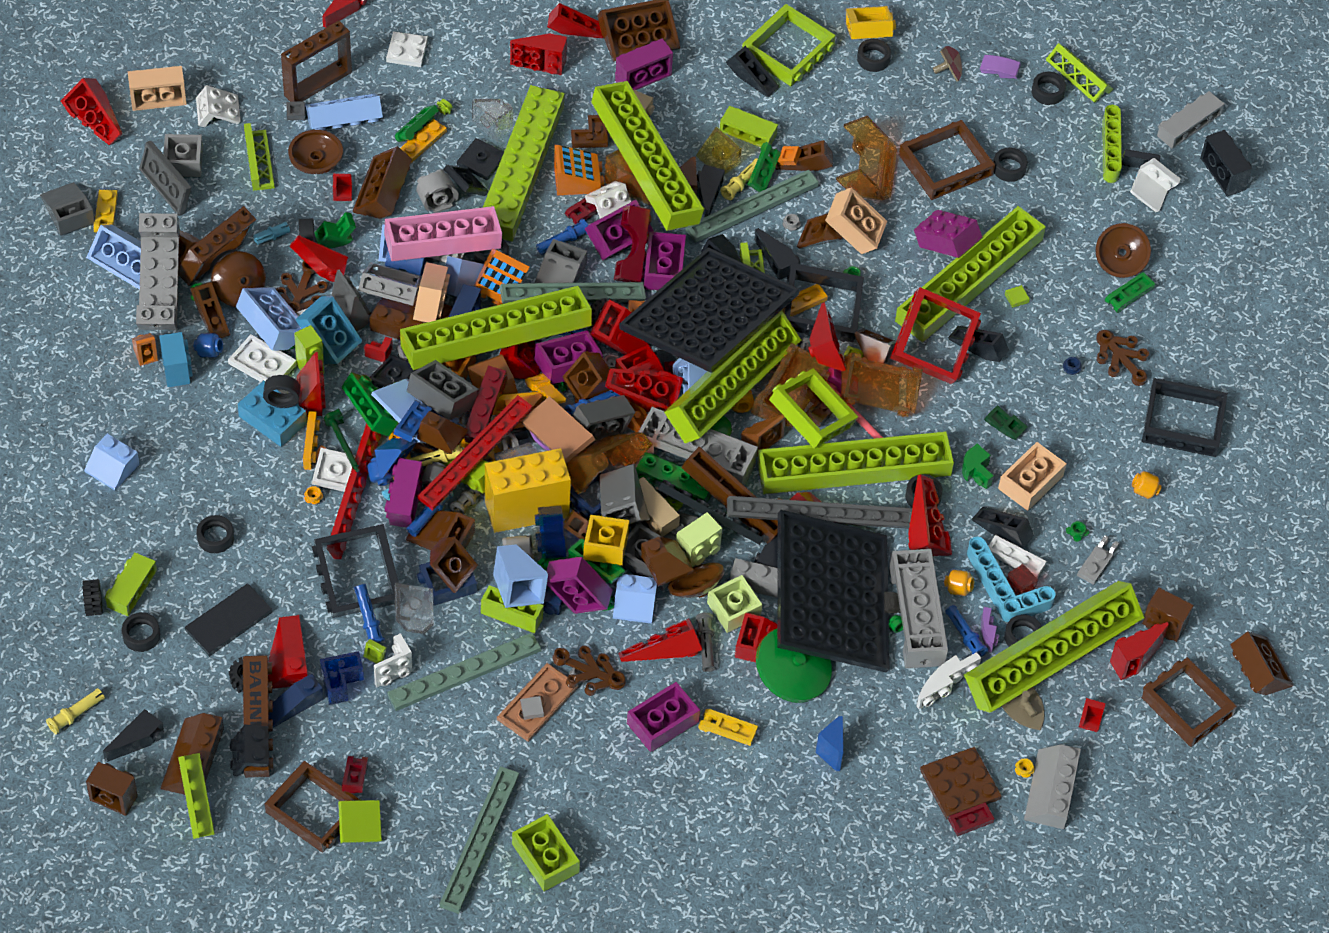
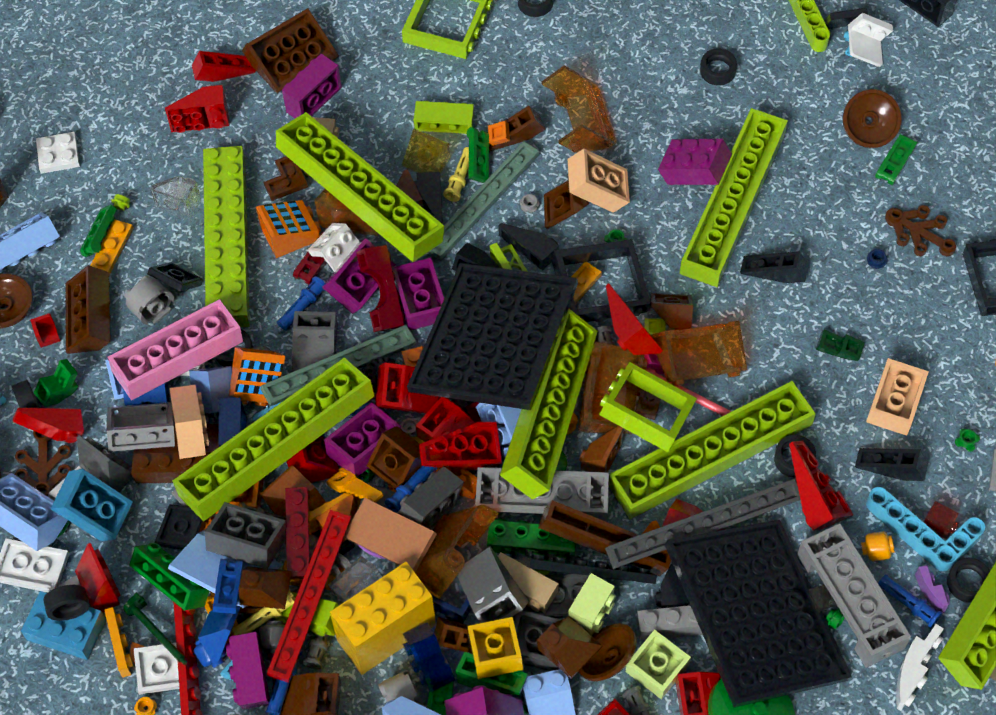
camera: 15 degrees left, 5 degrees up
(306, 344) = (76, 536): lime brick -> none
(379, 351) = (154, 504): red panel -> none
(481, 159) = (181, 246): black plate -> none
(751, 71) = (422, 57): black slope -> none
(930, 369) = (703, 278): red window -> none
(954, 182) = (634, 106): reddish brown window -> none
(975, 466) = (831, 406): green brick -> none
(1016, 556) = (920, 492): white plate -> none
(1017, 296) = (788, 203): lime tile -> none

